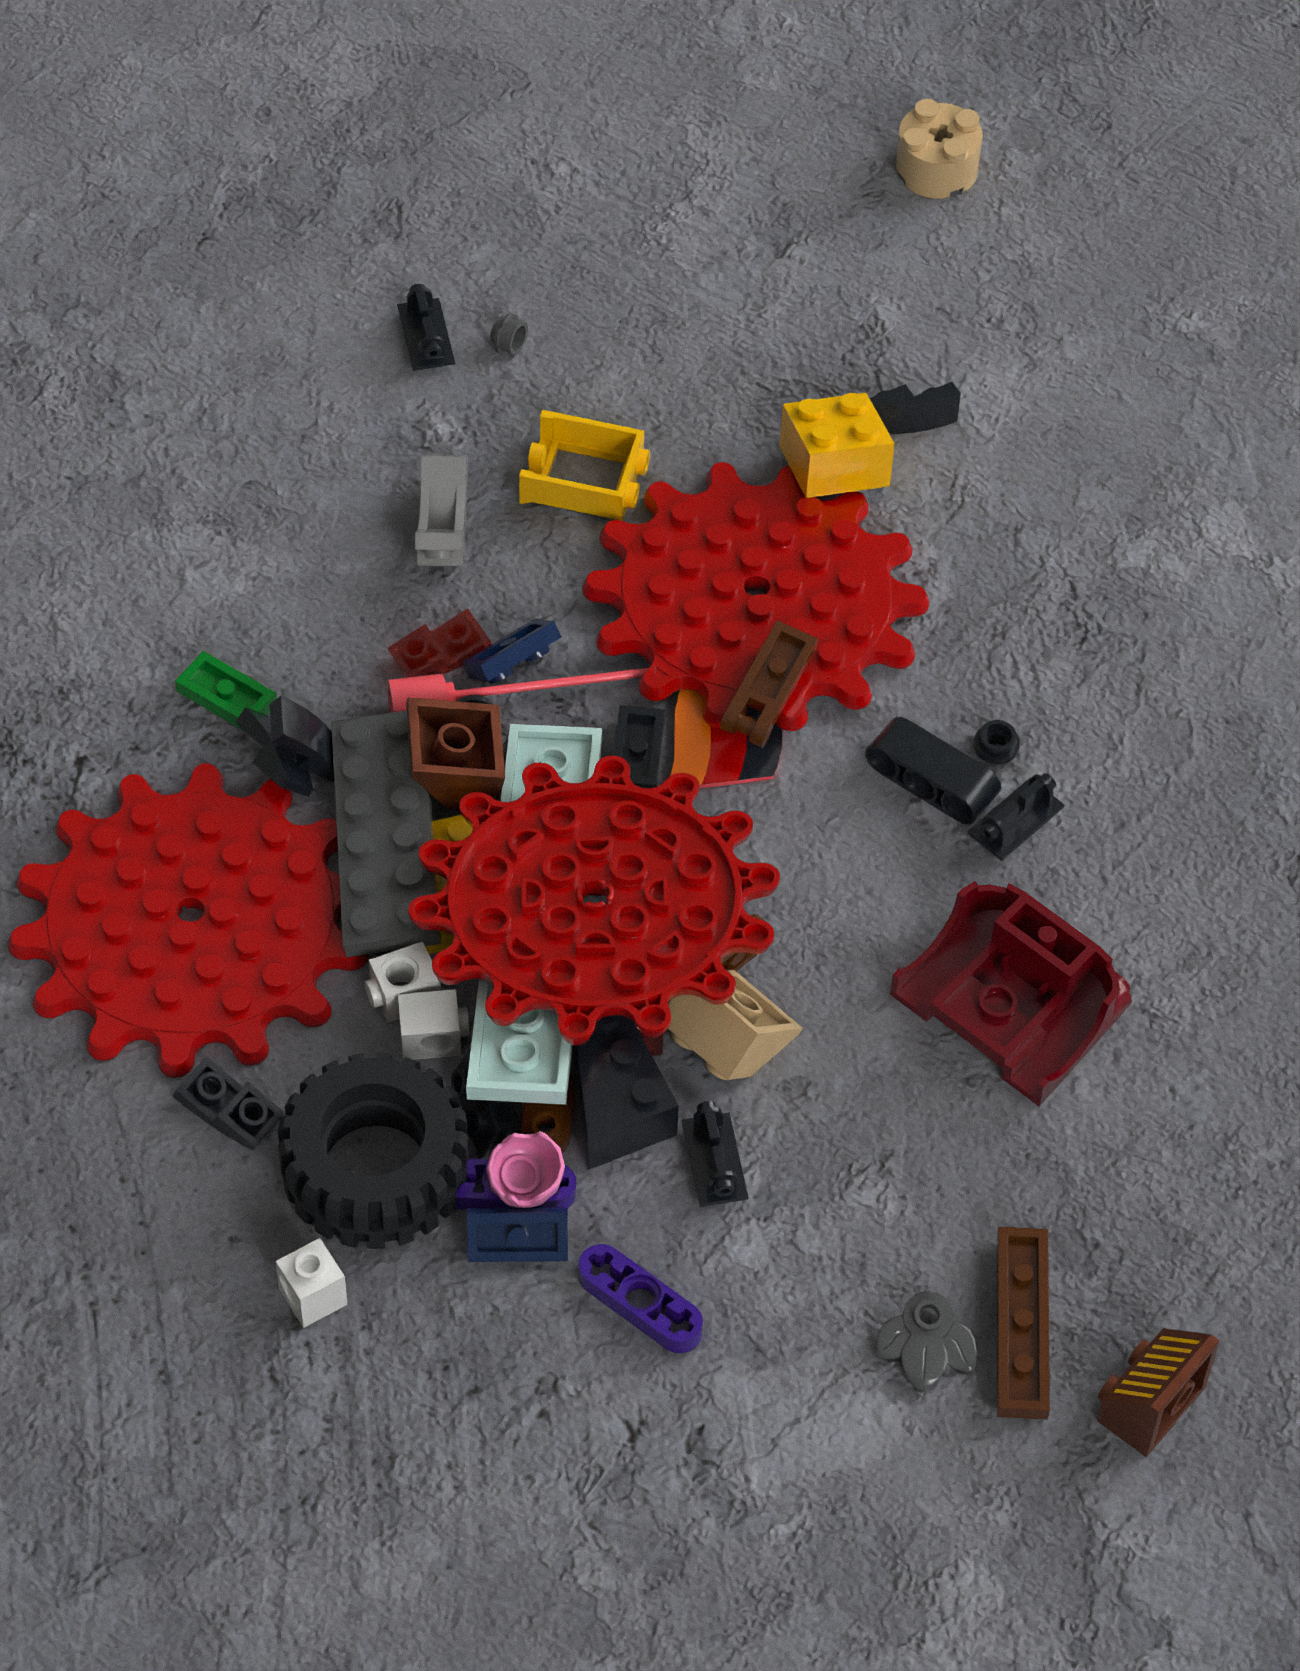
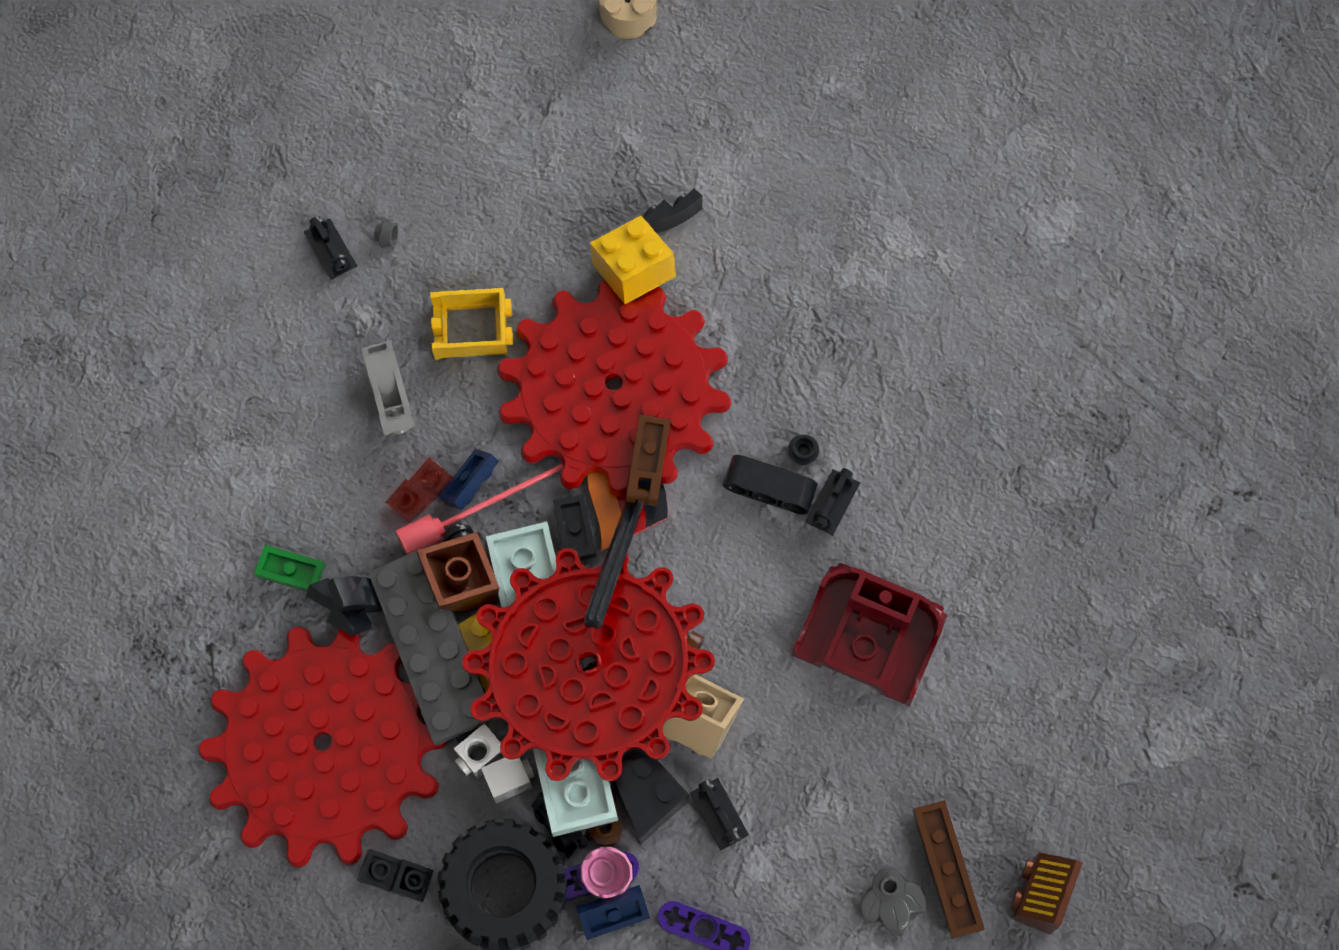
camera: 15 degrees left, 15 degrees up
(673, 781) = (612, 565): none -> black axle

